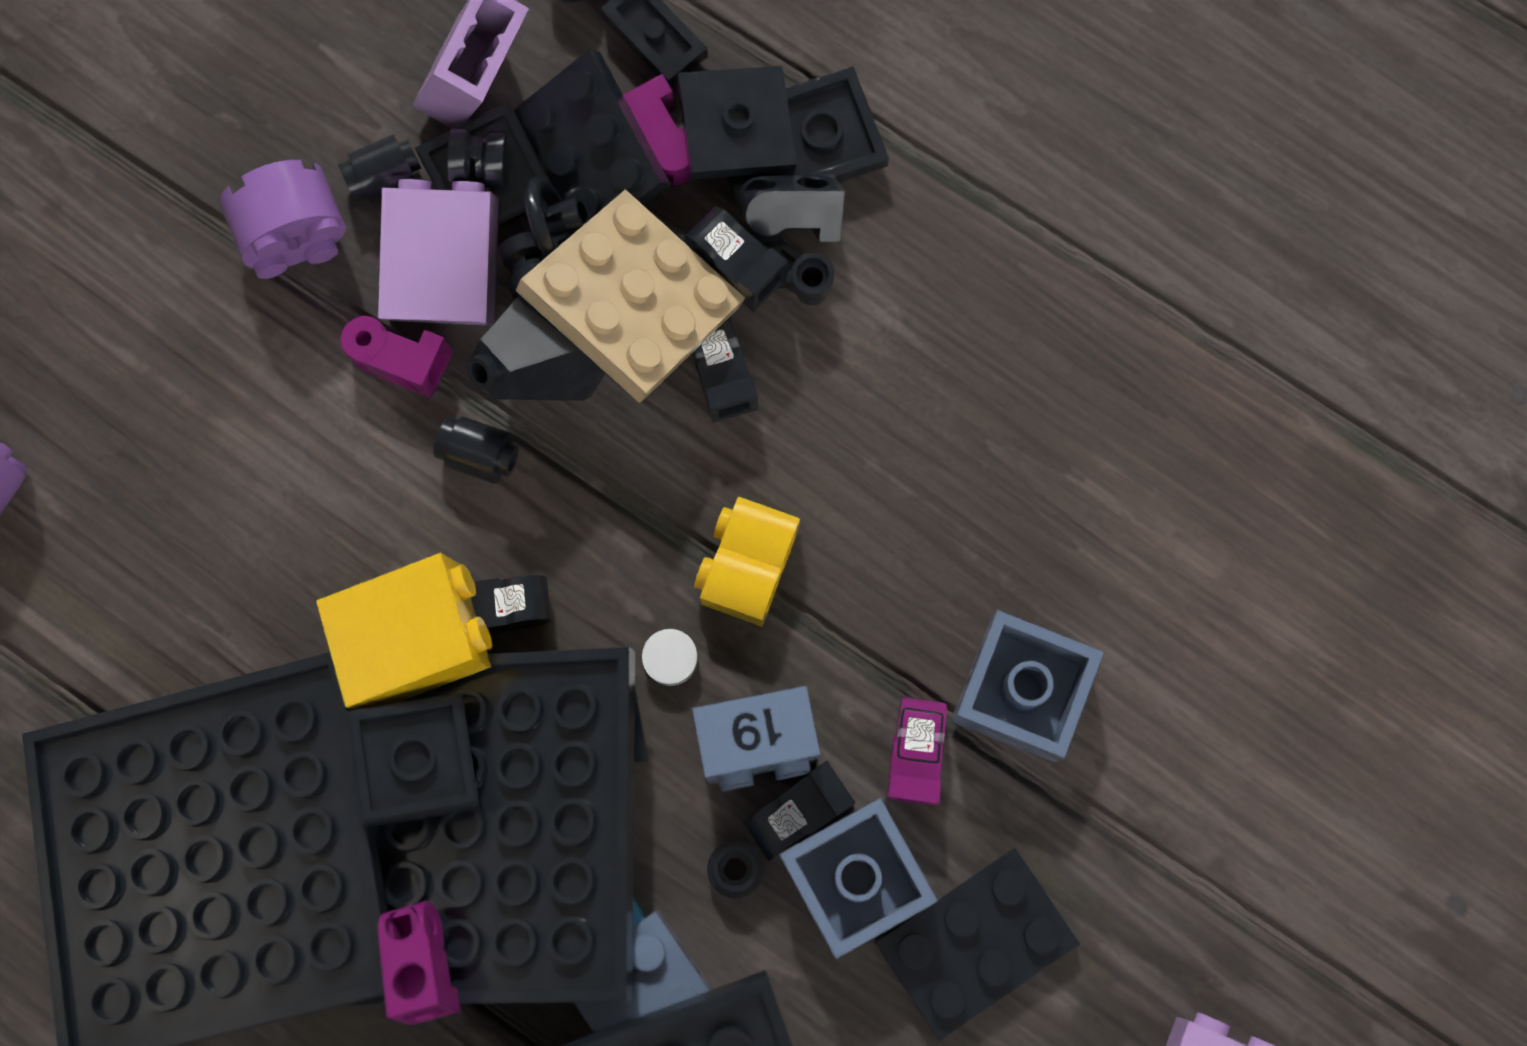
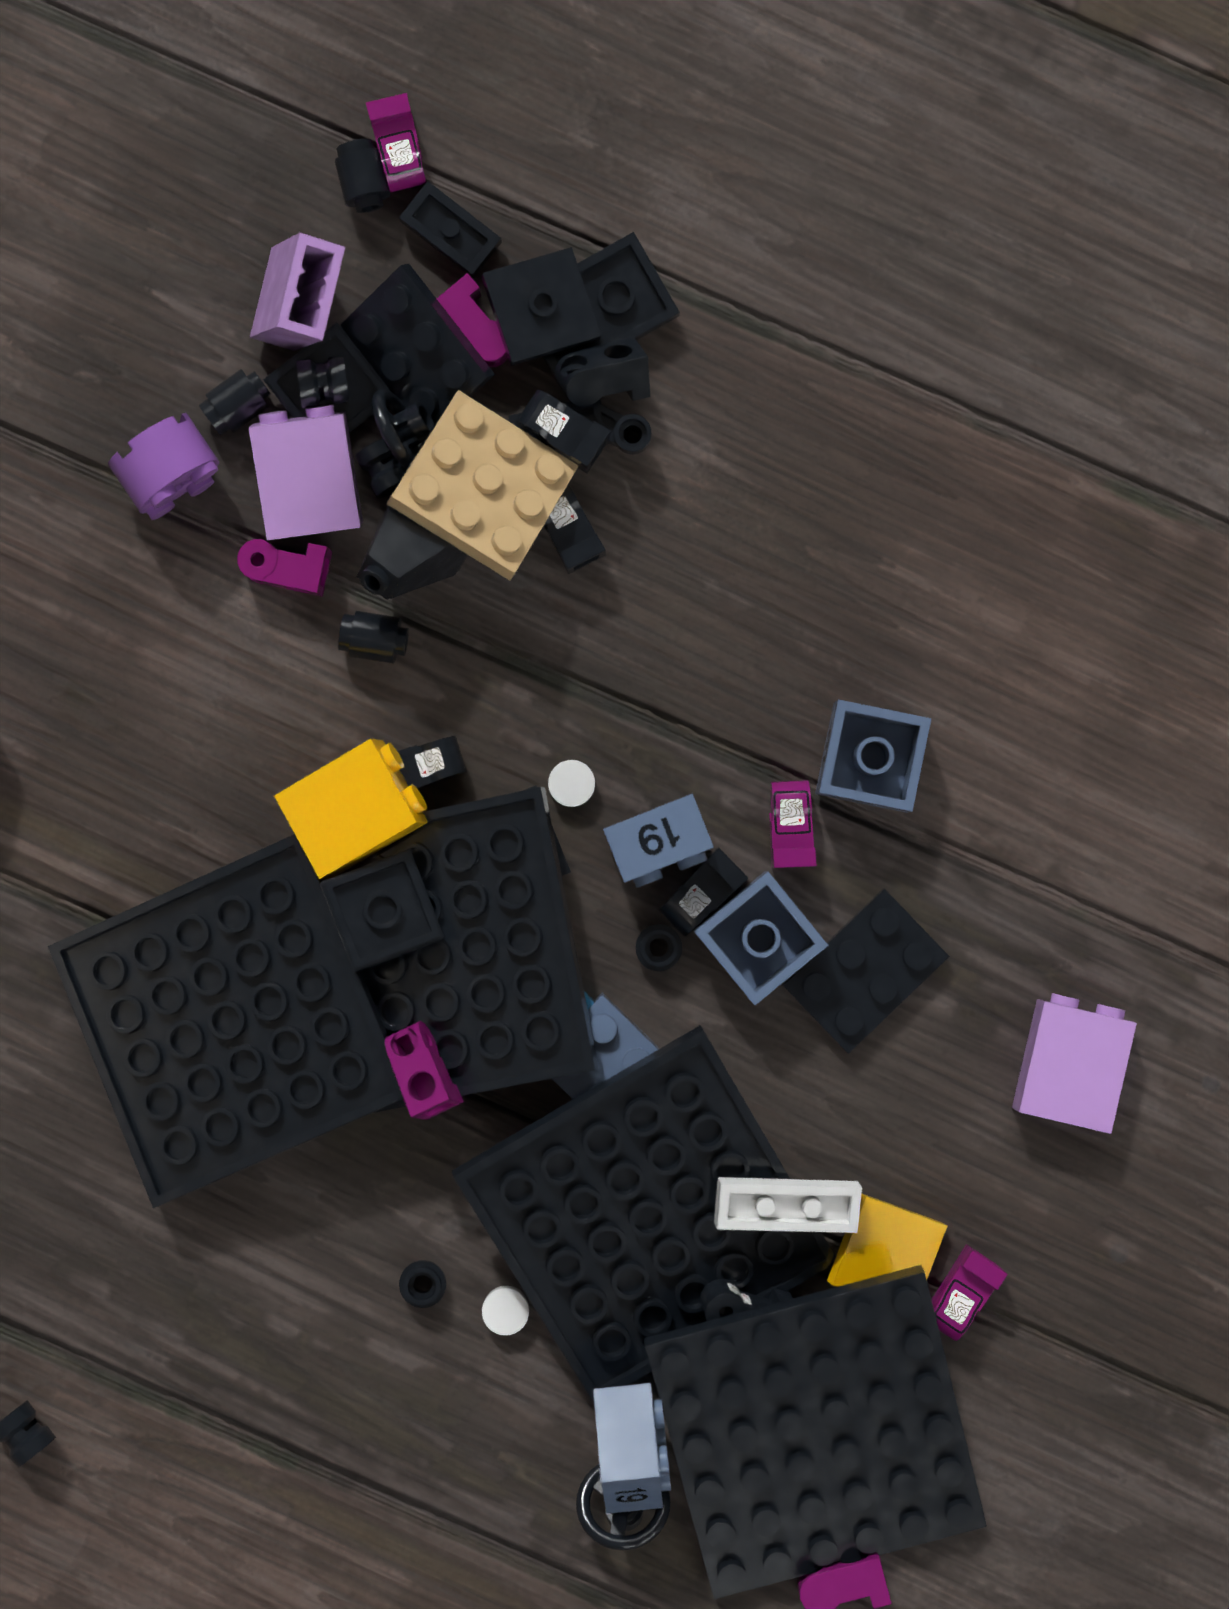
camera: 15 degrees left, 10 degrees up
(748, 560) = (622, 691): yellow brick -> none

